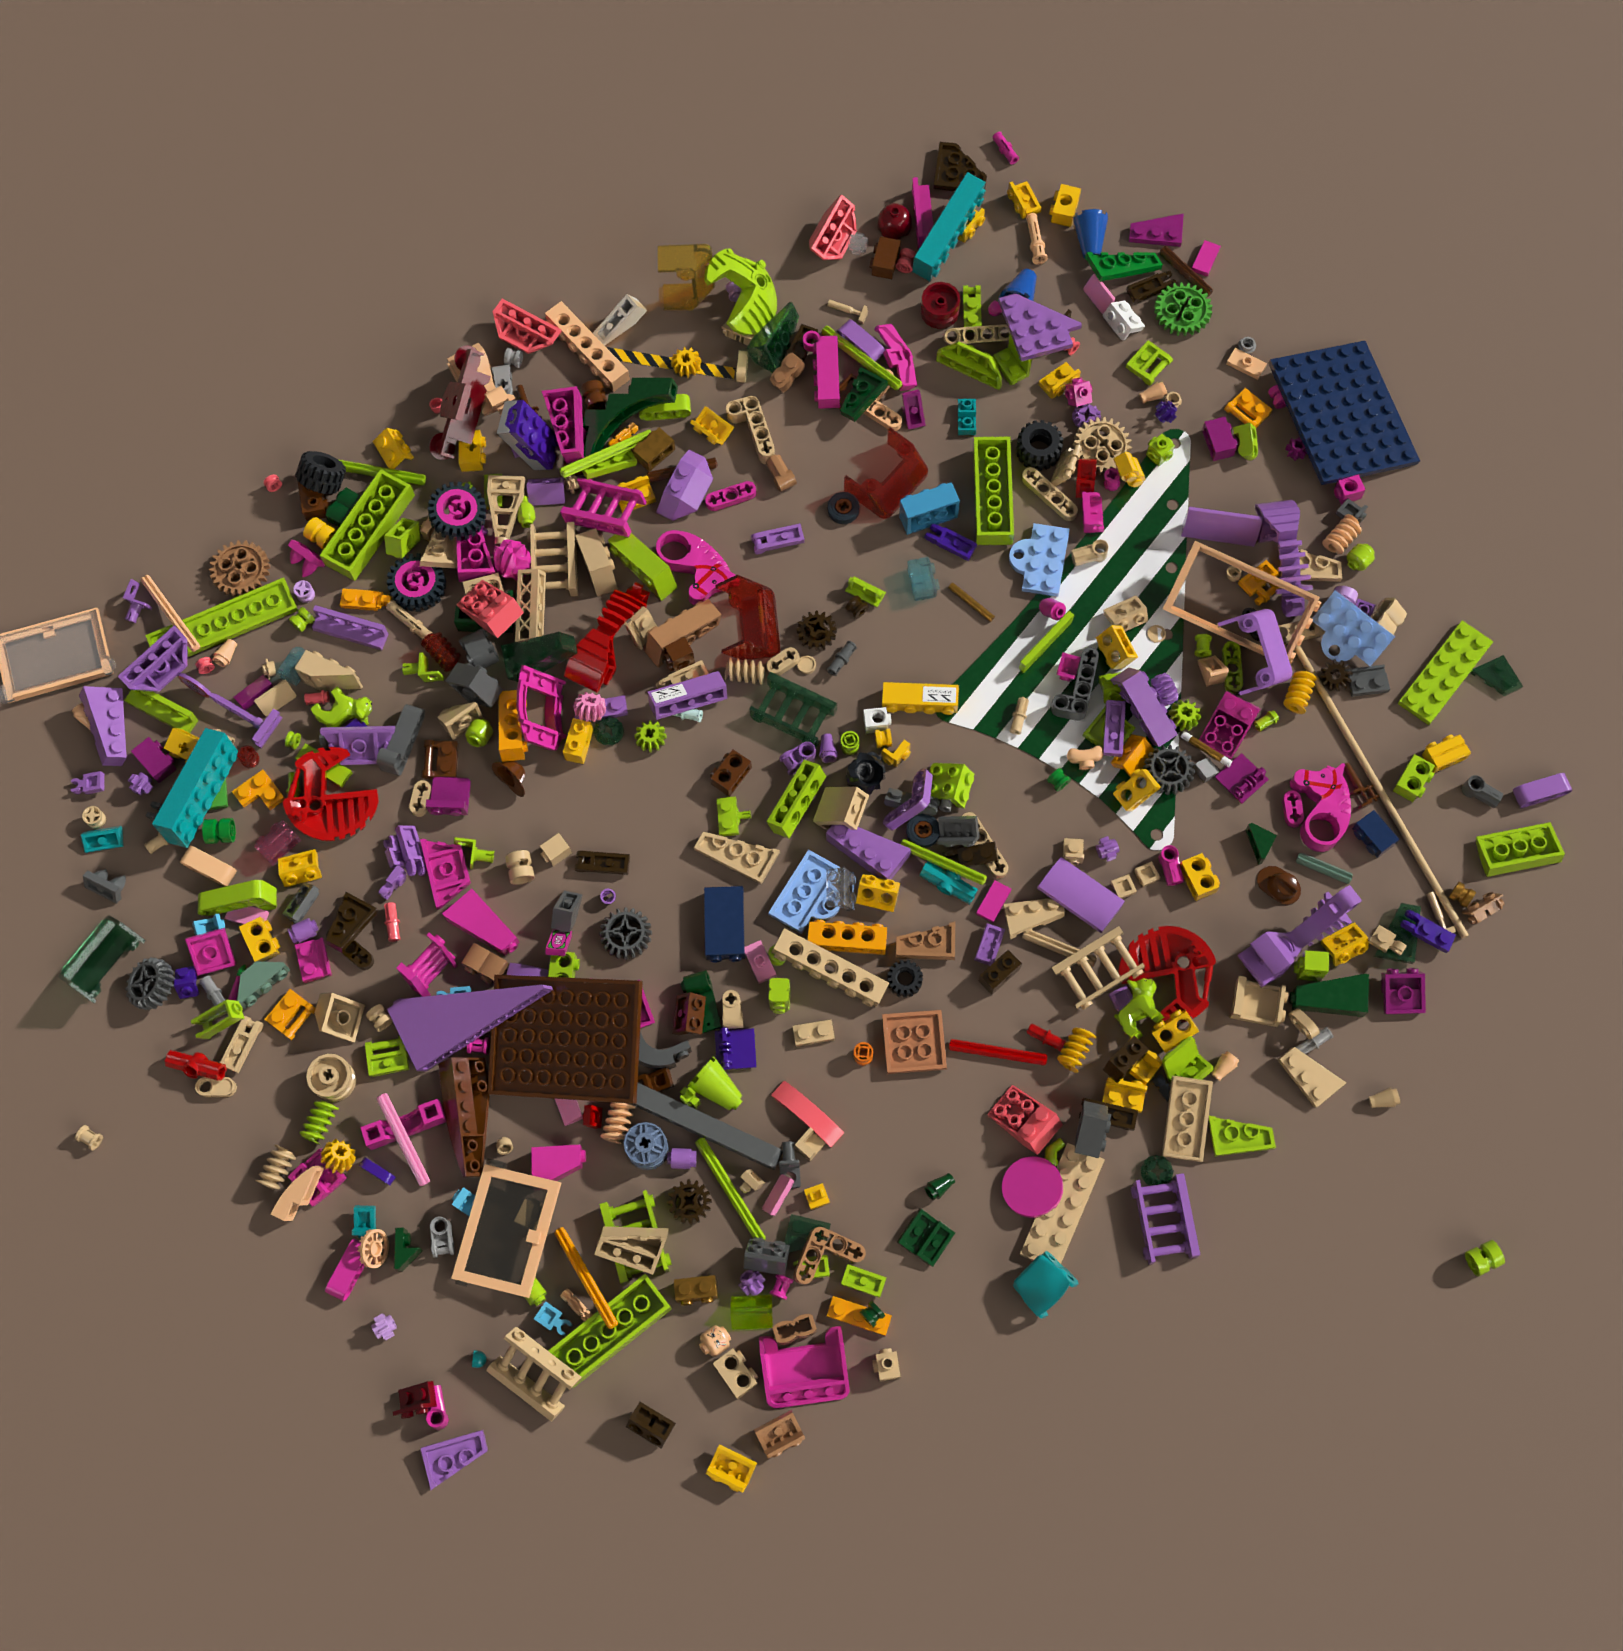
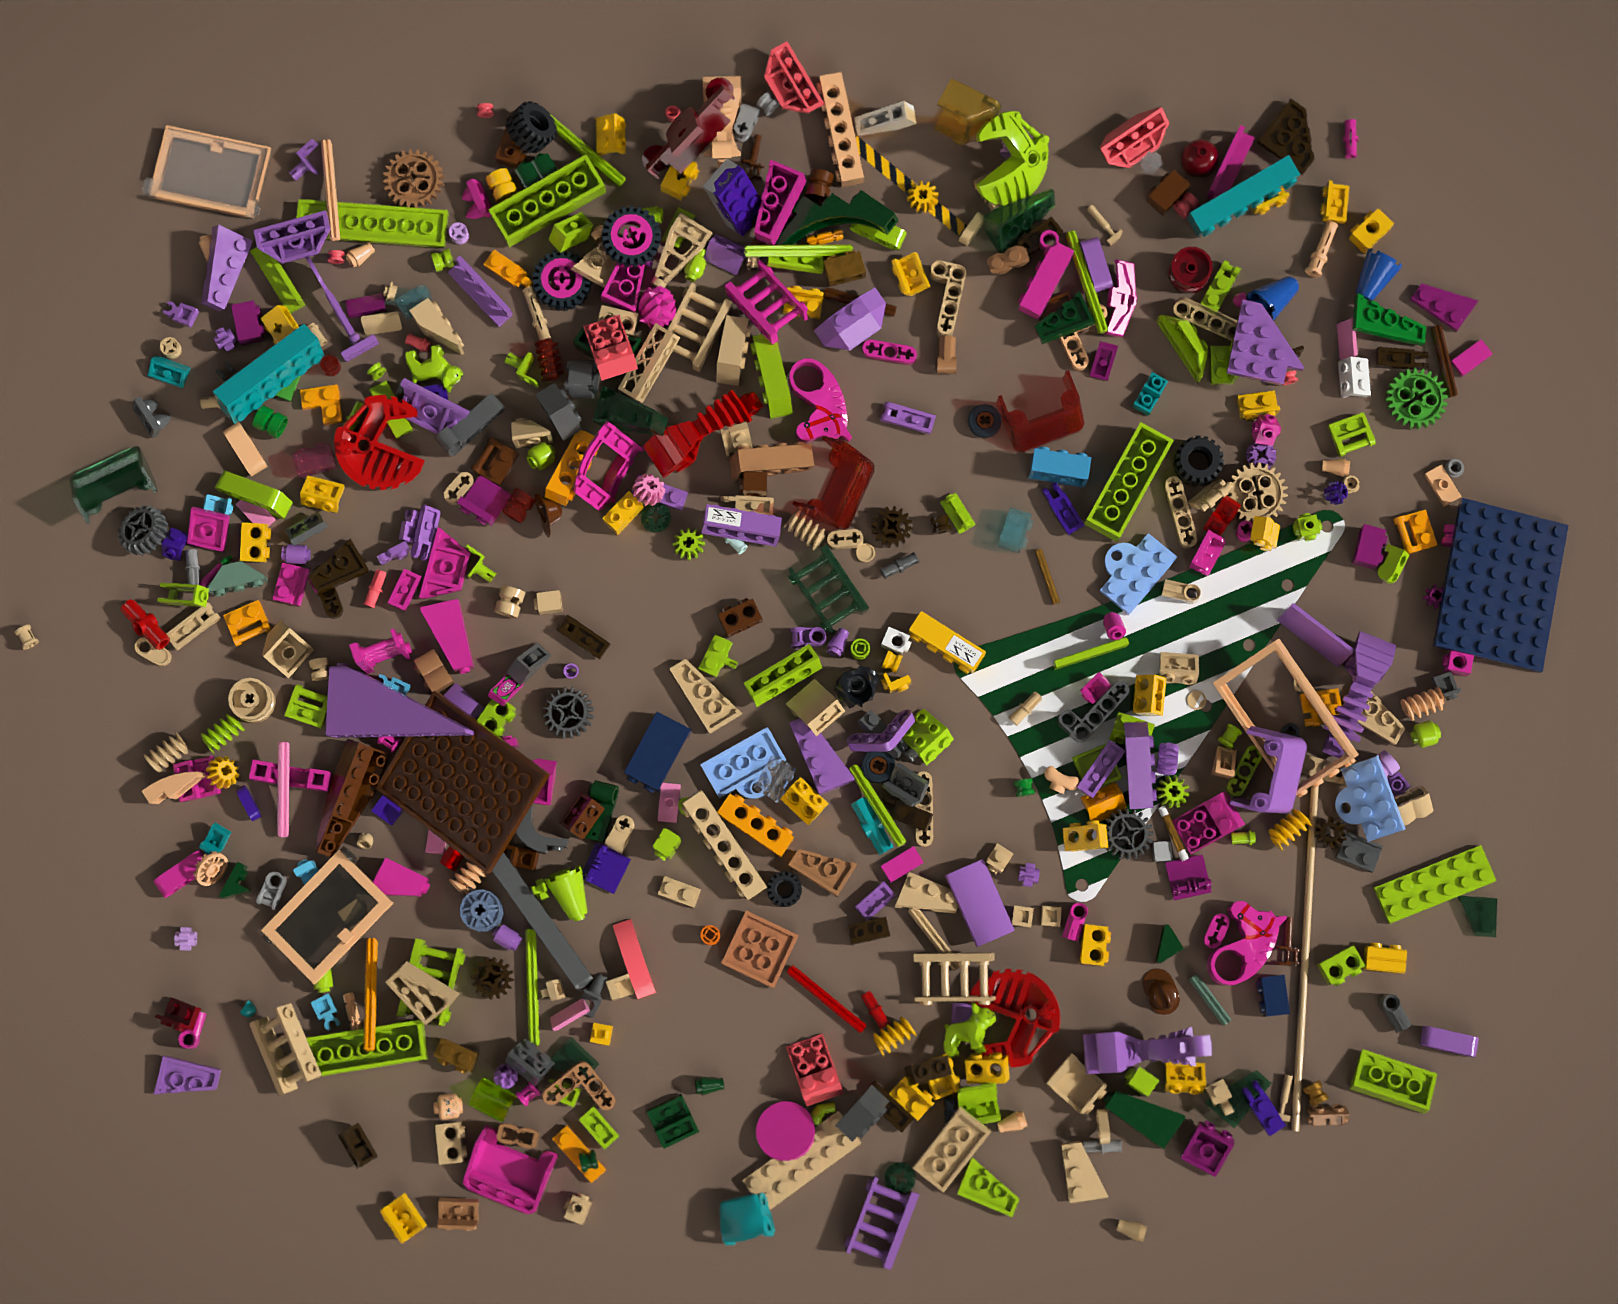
camera: 25 degrees right, 10 degrees up
(419, 908) = (404, 590): none -> dark pink plate
(482, 783) = (519, 504): none -> clear red wheel
(509, 1107) = (387, 810): none -> dark purple panel

